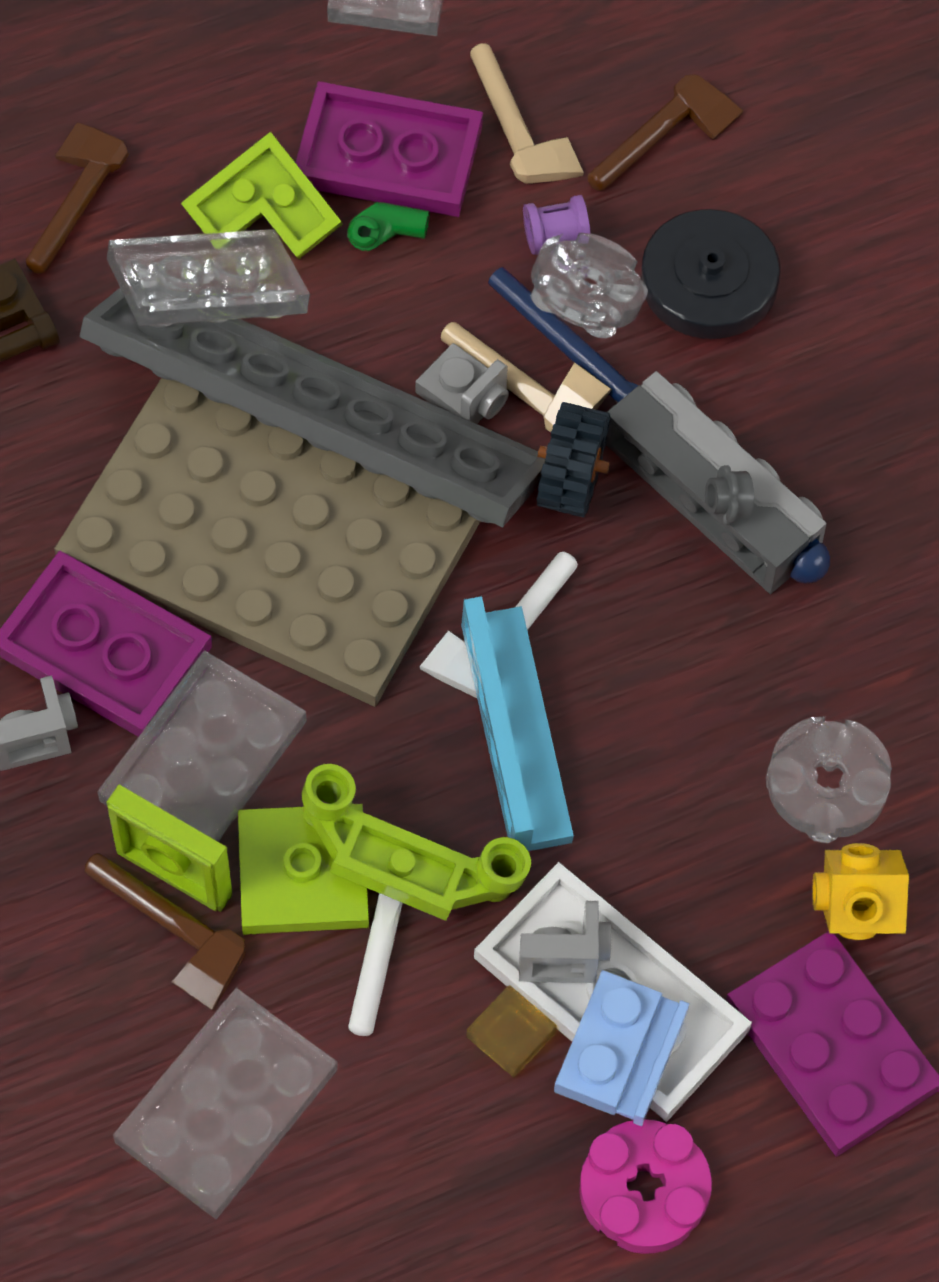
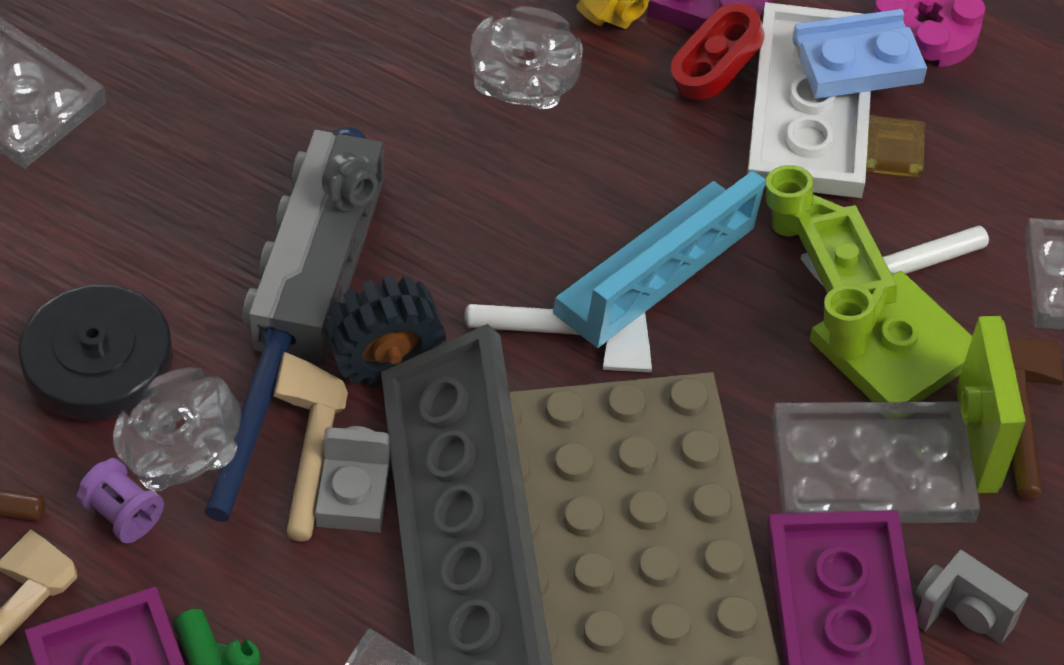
camera: 125 degrees left, 10 degrees down
(559, 956) = (831, 104): light grey bracket -> none
(718, 942) = (710, 55): none -> red plate

